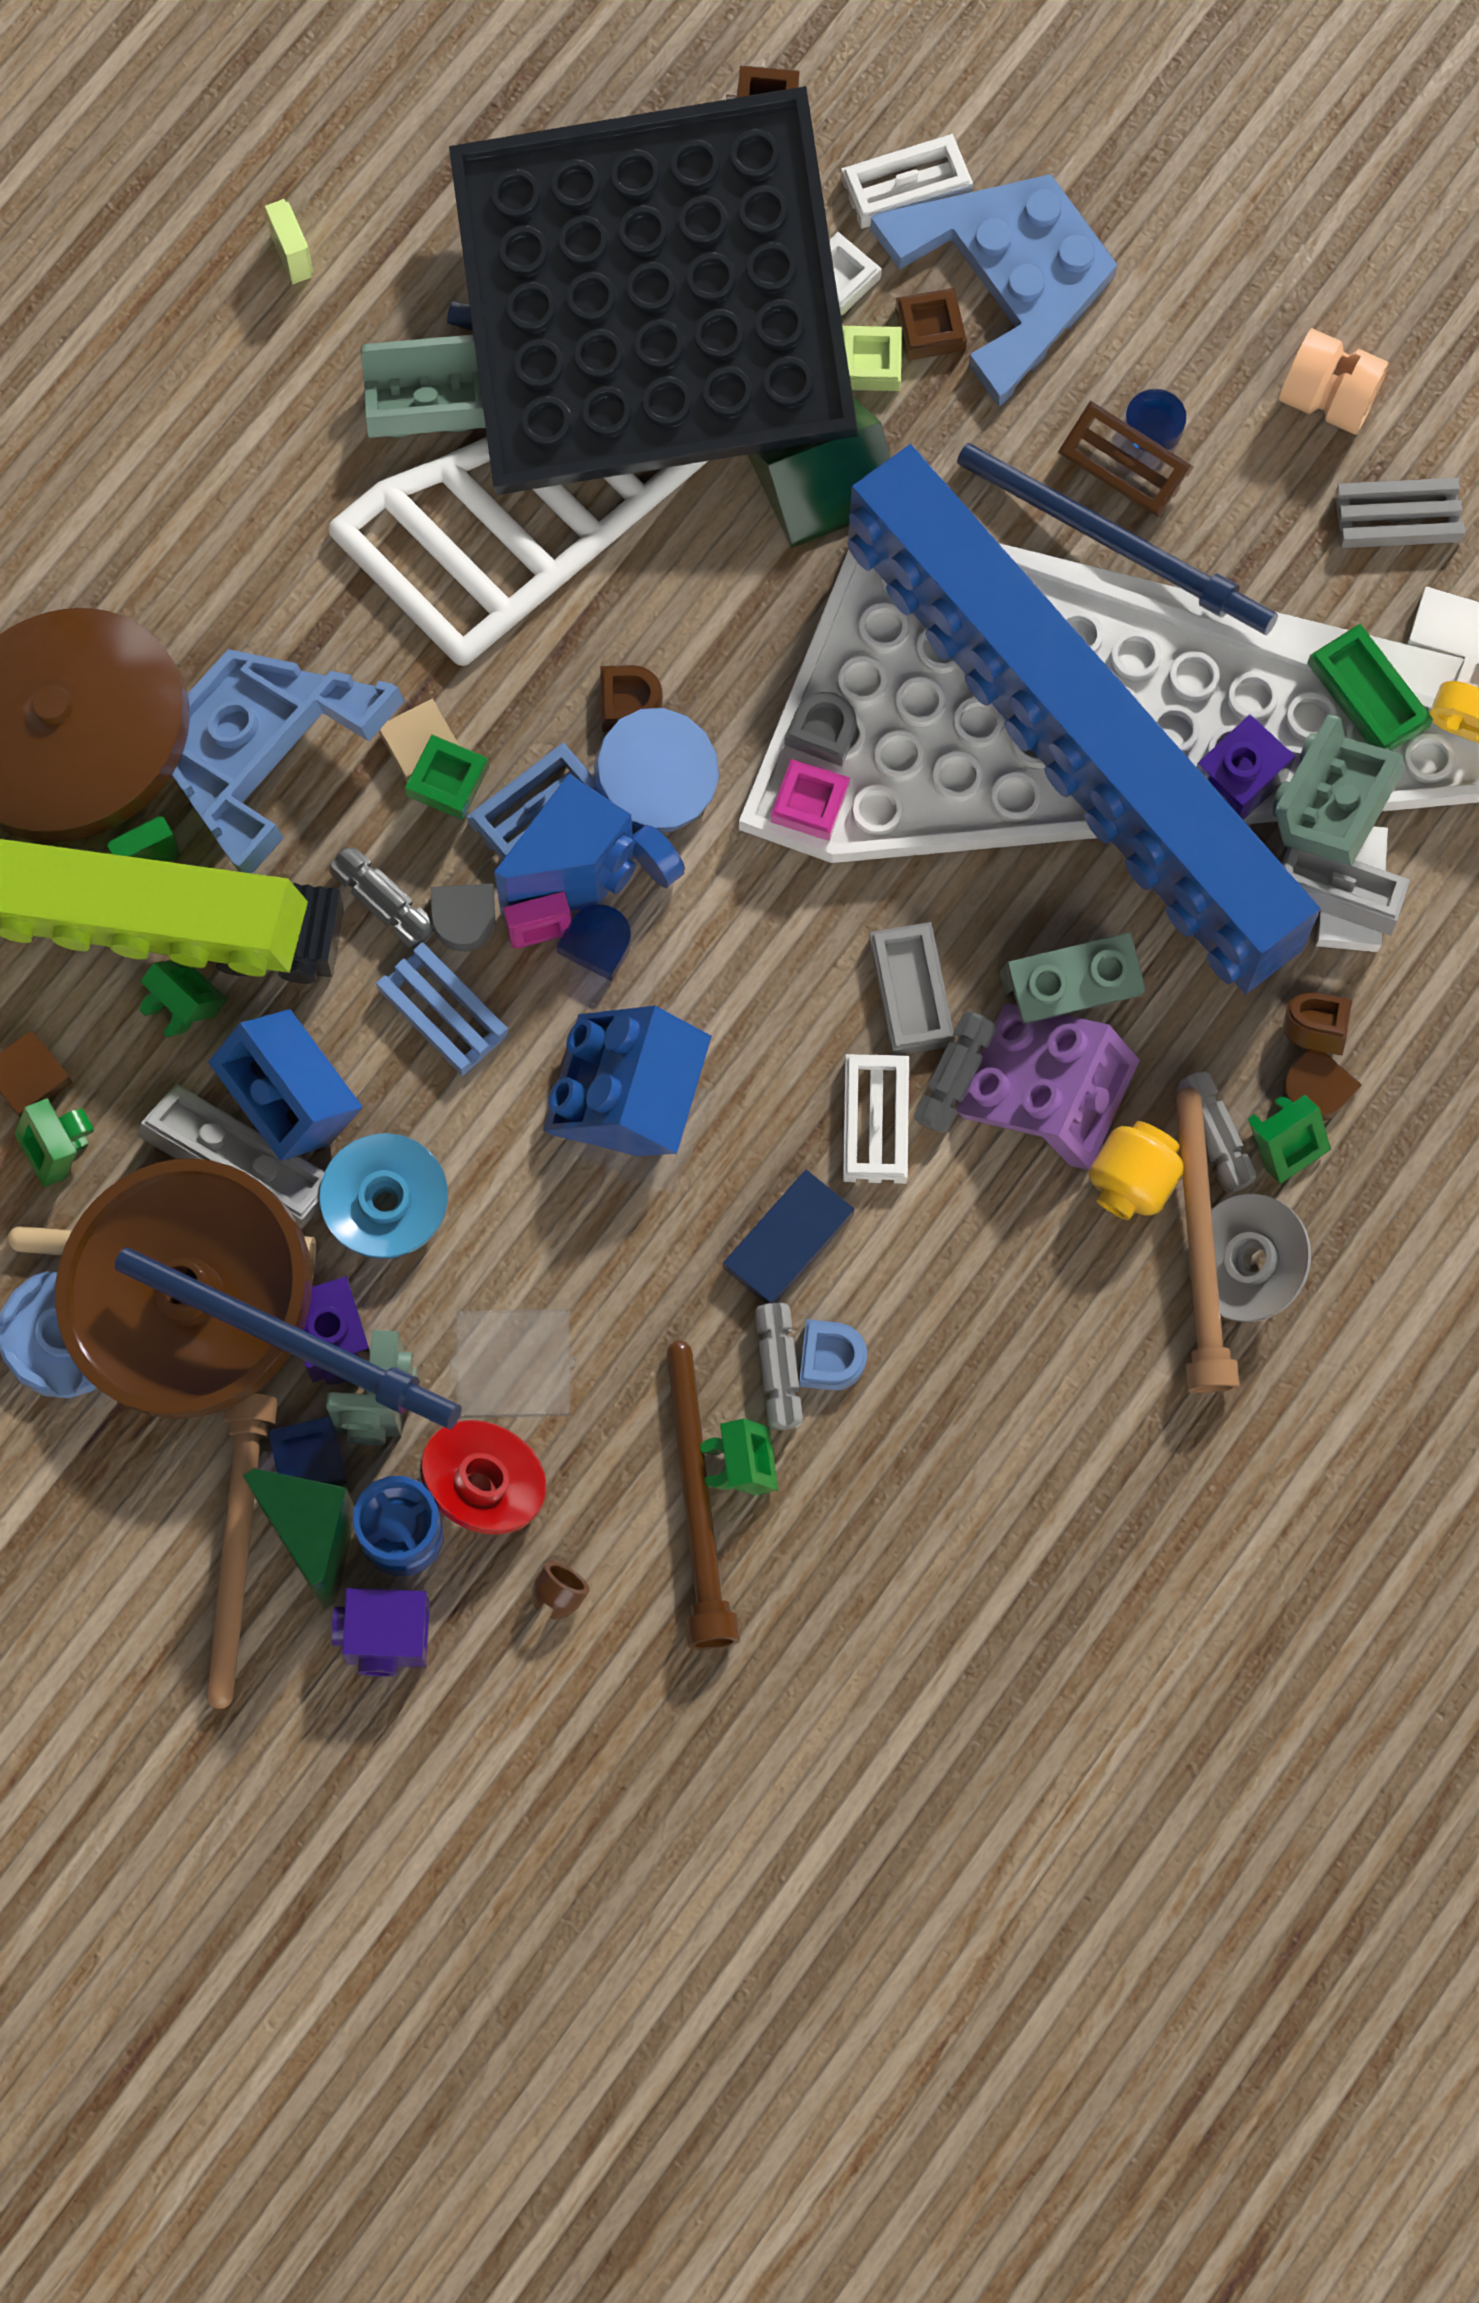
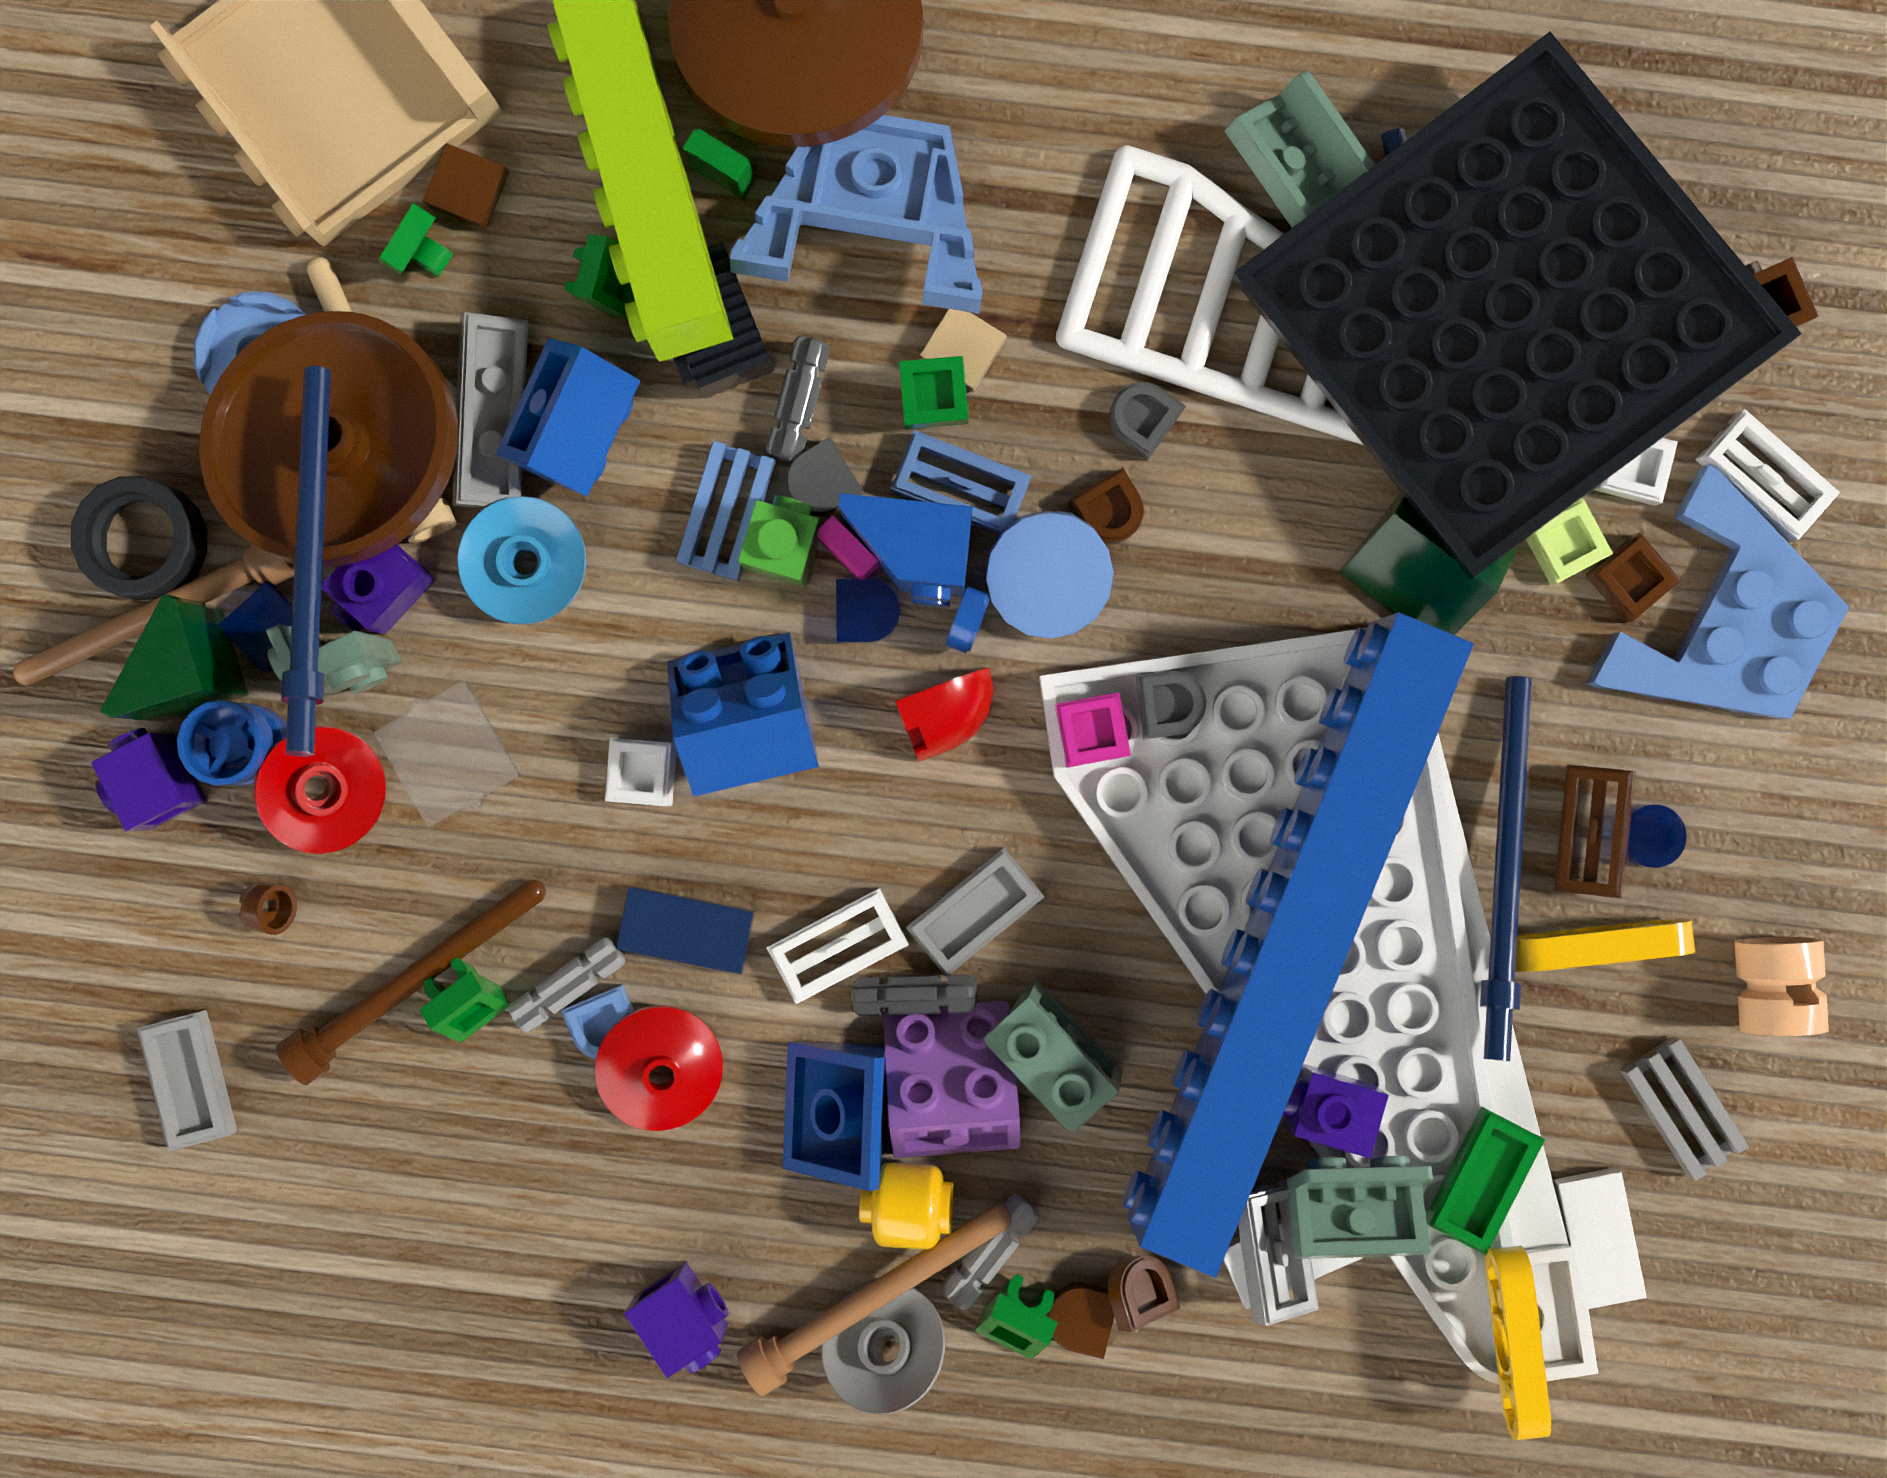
camera: 60 degrees right, 15 degrees up
(133, 1481) = (93, 521): none -> black tyre
(500, 968) = (781, 540): none -> bright green brick
(567, 630) = (1143, 416): none -> dark grey tile
(627, 1201) = (640, 772): none -> white tile
(674, 1753) = (187, 1080): none -> light grey tile
(725, 922) = (947, 713): none -> red brick
(880, 1343) = (652, 1039): none -> red dish
(1021, 1187) = (835, 1112): none -> blue slope
(1133, 1422) = (679, 1321): none -> dark purple brick
(1225, 498) = (1604, 944): none -> yellow beam

